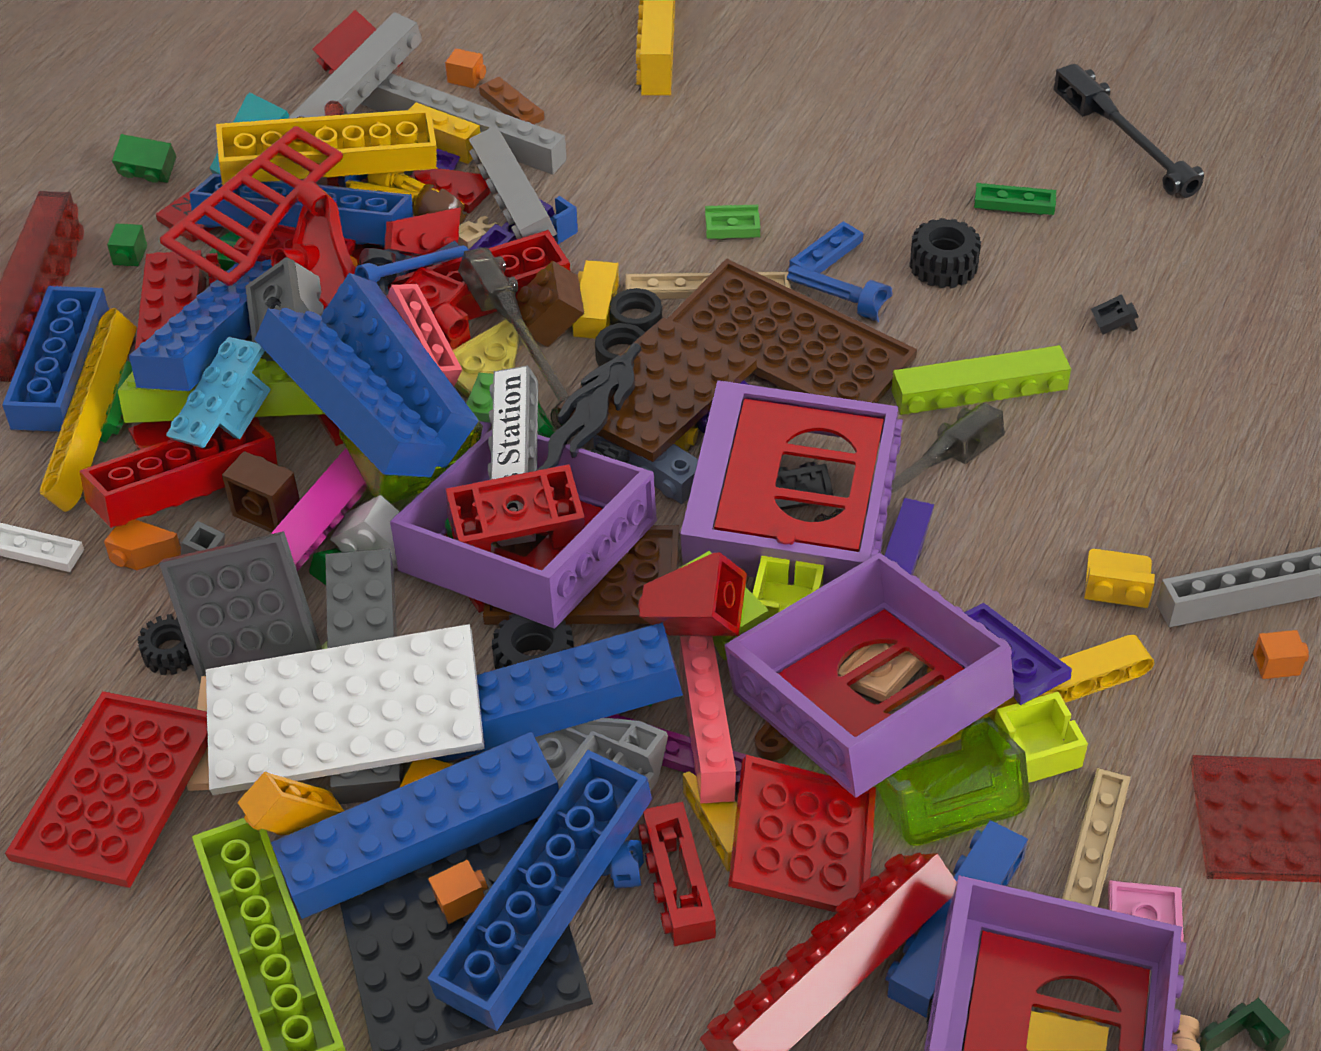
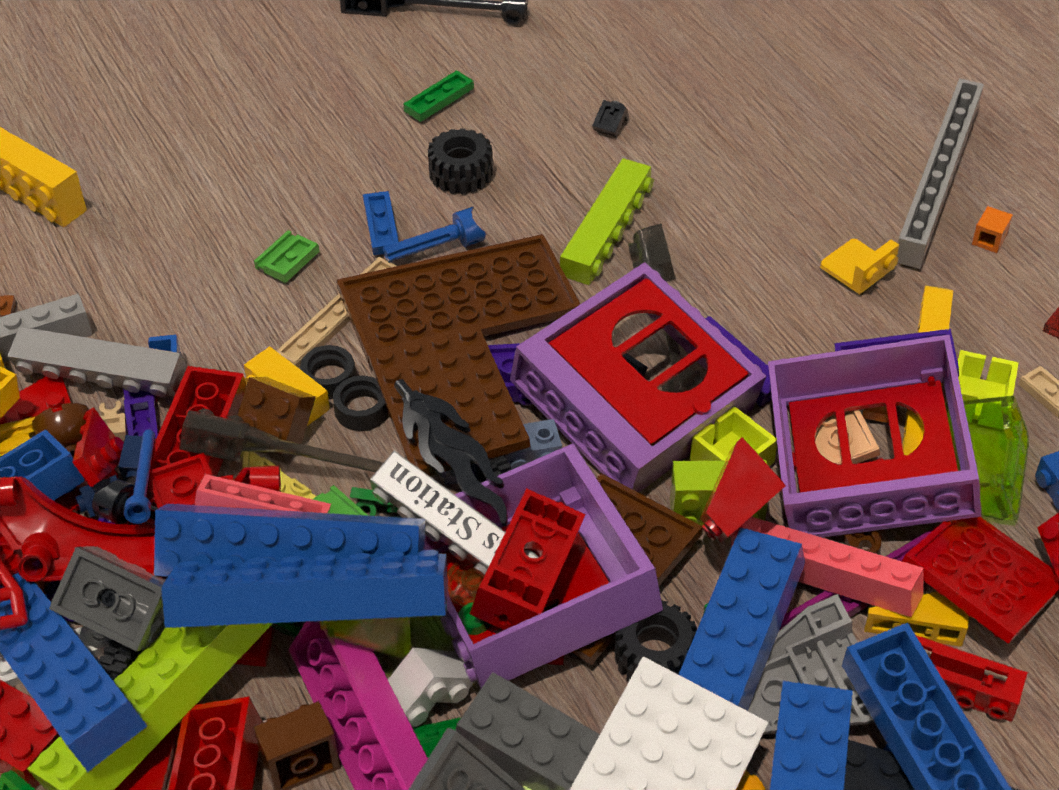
camera: 55 degrees left, 0 degrees up
(224, 396) = (175, 702): medium azure bracket -> none

